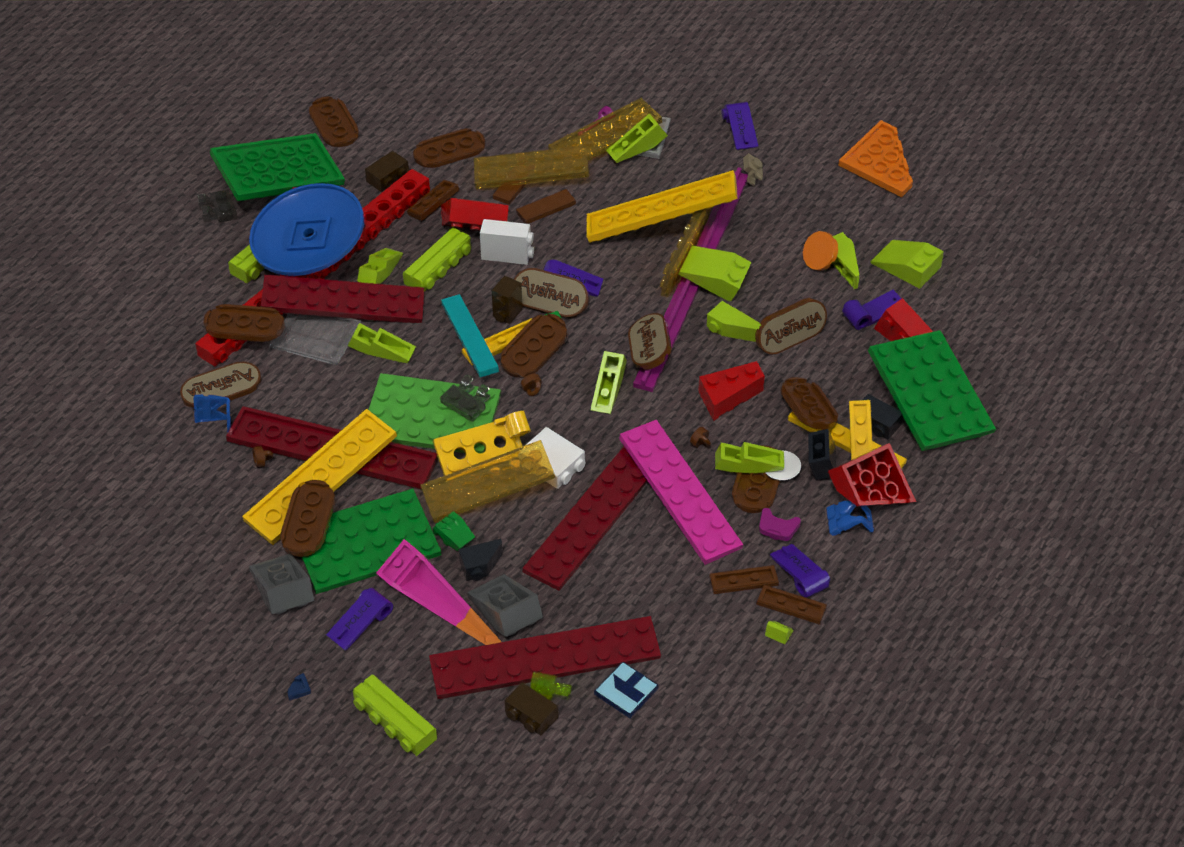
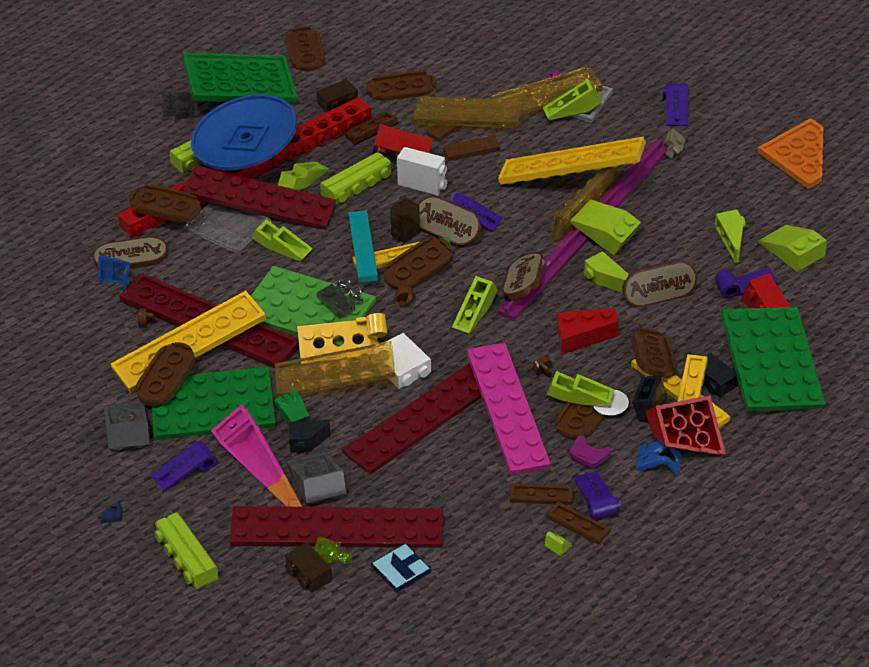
camera: 15 degrees right, 5 degrees down
(820, 250) = (710, 222): orange tile -> none

